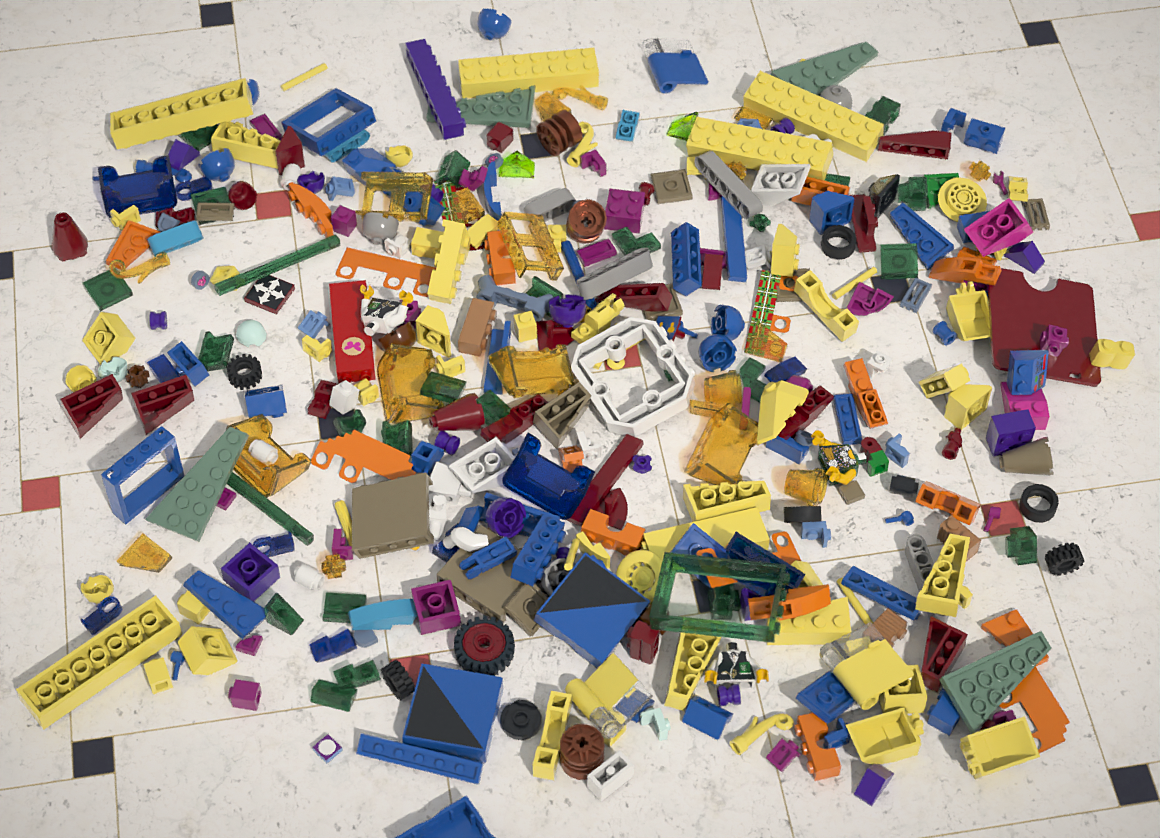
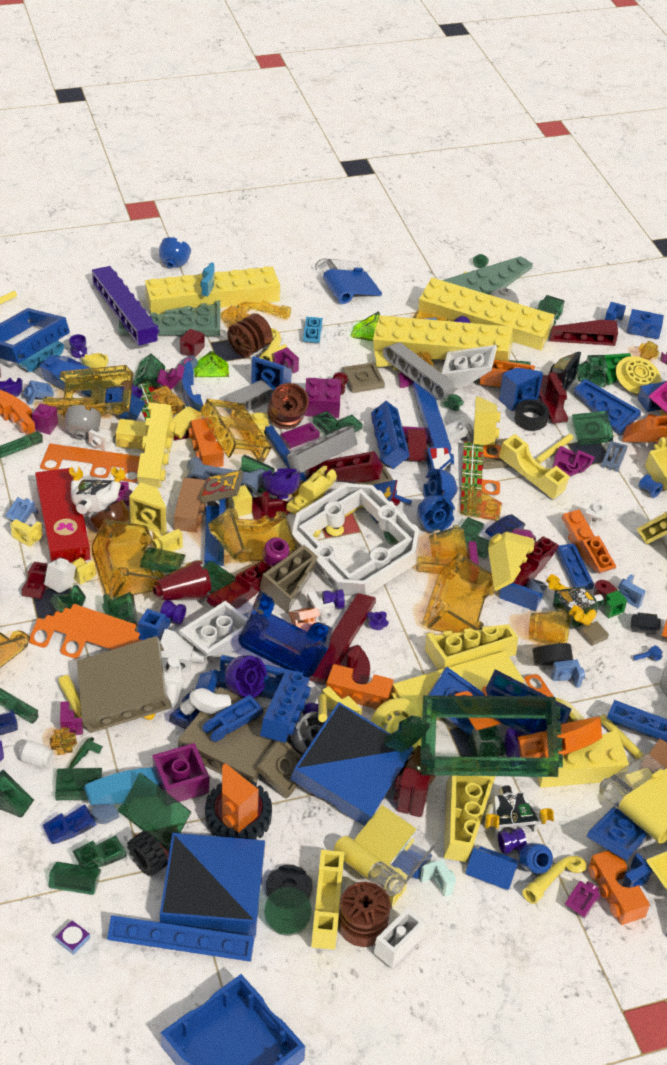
camera: 10 degrees left, 10 degrees down
(355, 204) = (68, 402): none -> clear yellow plant
(356, 571) = (88, 745): none -> clear green bar
(384, 135) = (78, 345): none -> dark purple wheel
(408, 640) = (154, 810): none -> clear green piece
(481, 639) = (238, 799): none -> orange slope
(508, 311) = (221, 486): none -> dark tan tile
(516, 742) = (287, 911): none -> clear green tile
(523, 66) = (207, 282): none -> dark azure slope
(550, 387) = (275, 551): none -> magenta head
(578, 182) = (269, 372): none -> blue slope
(603, 439) = (336, 597): none -> dark purple wheel
(642, 590) = (408, 733): none -> clear green slope
(733, 291) = (439, 458): none -> slope
(746, 713) = (536, 858): none -> blue head
(822, 45) = (480, 261): none -> clear green plate

